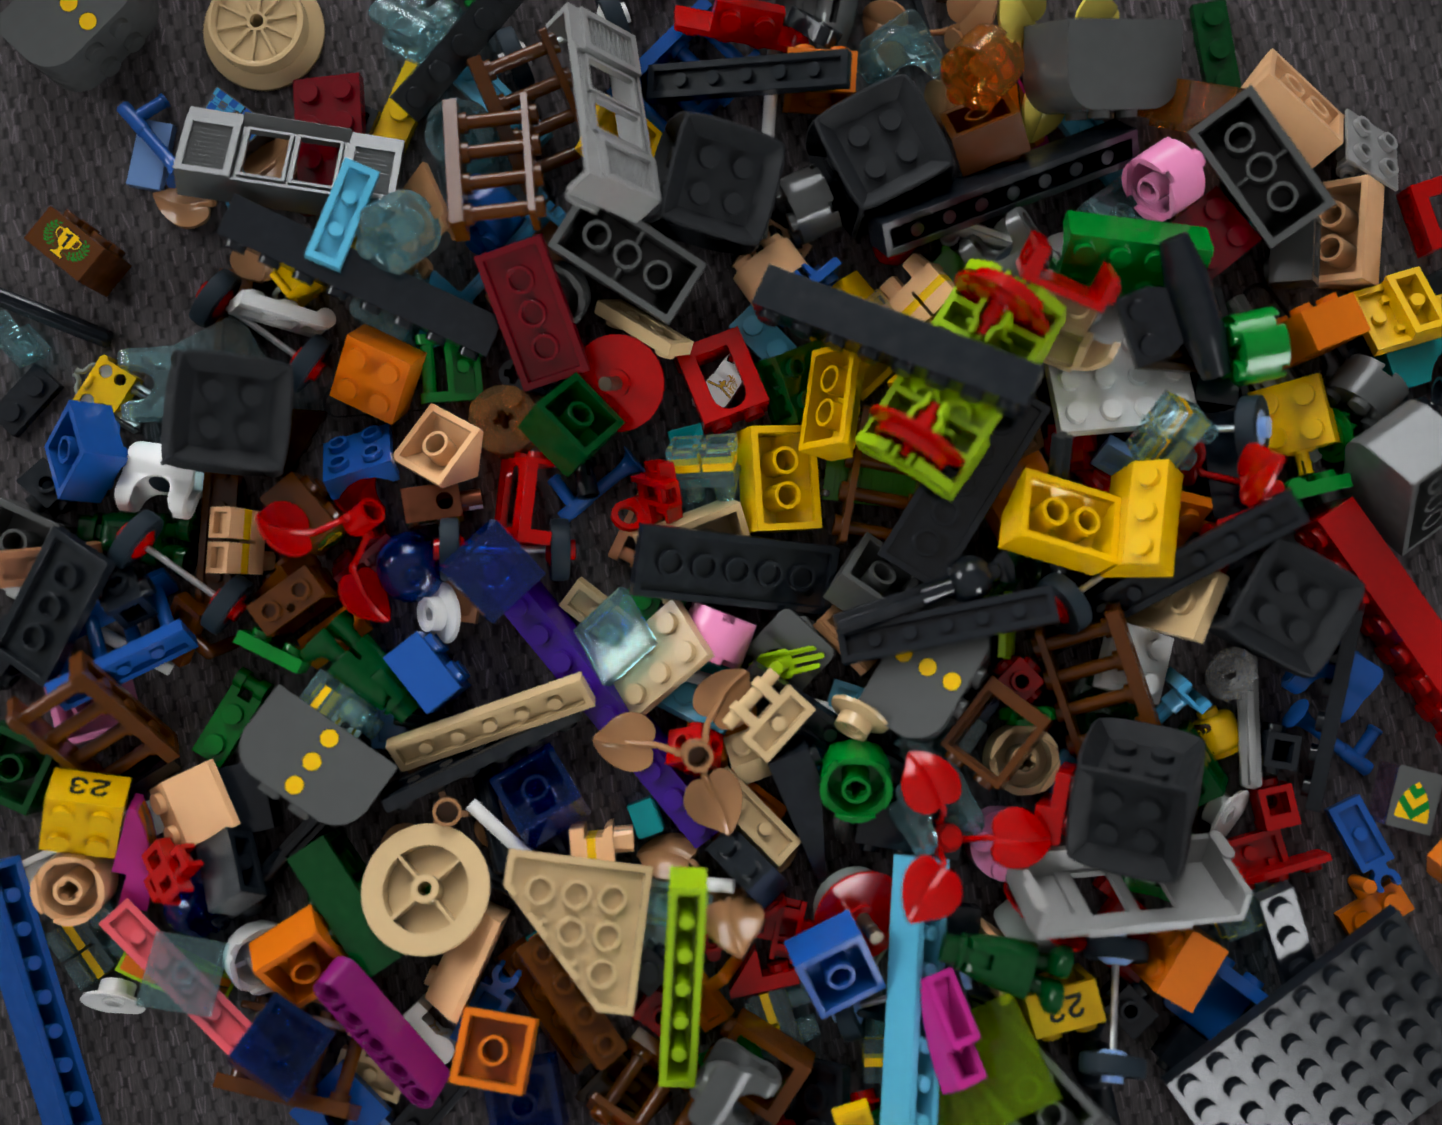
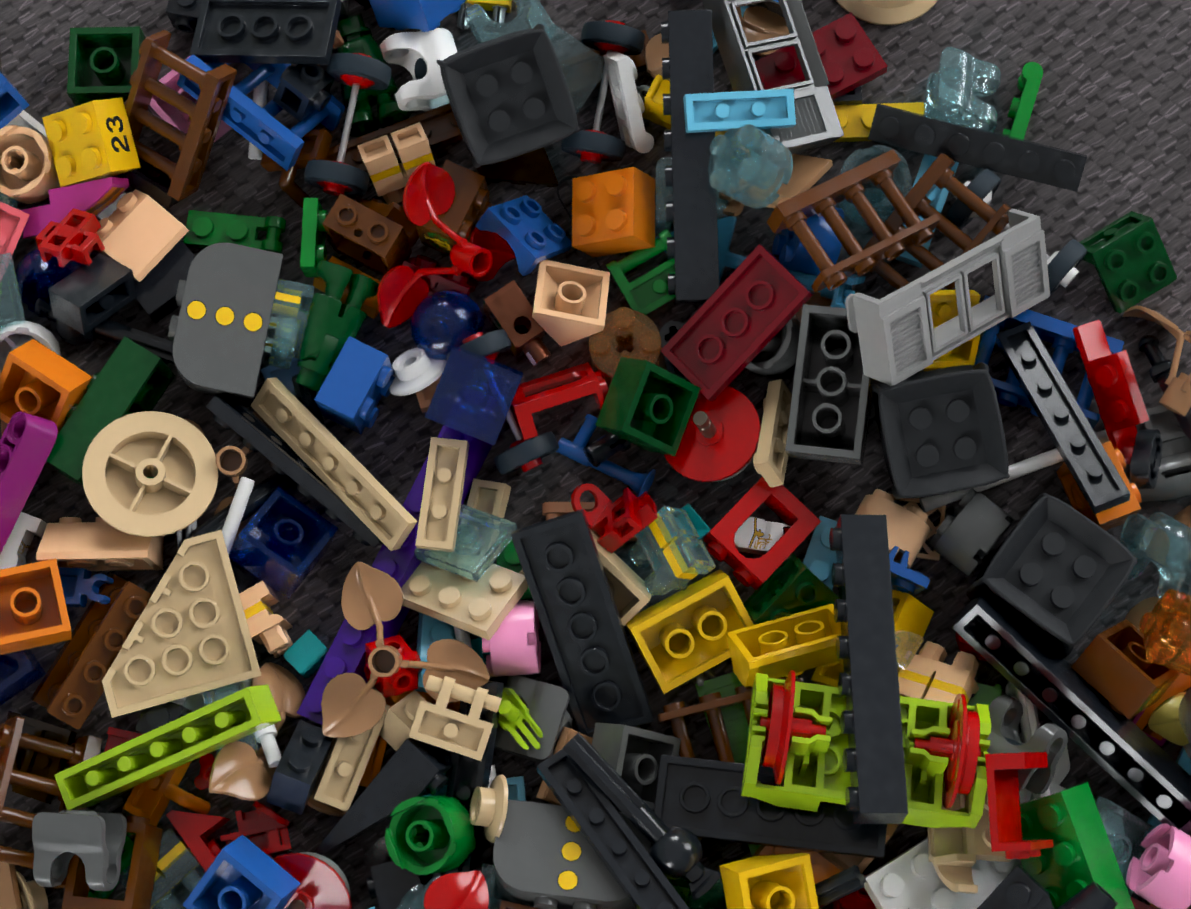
camera: 70 degrees right, 10 degrees down
(566, 638) = (442, 494): none -> tan plate

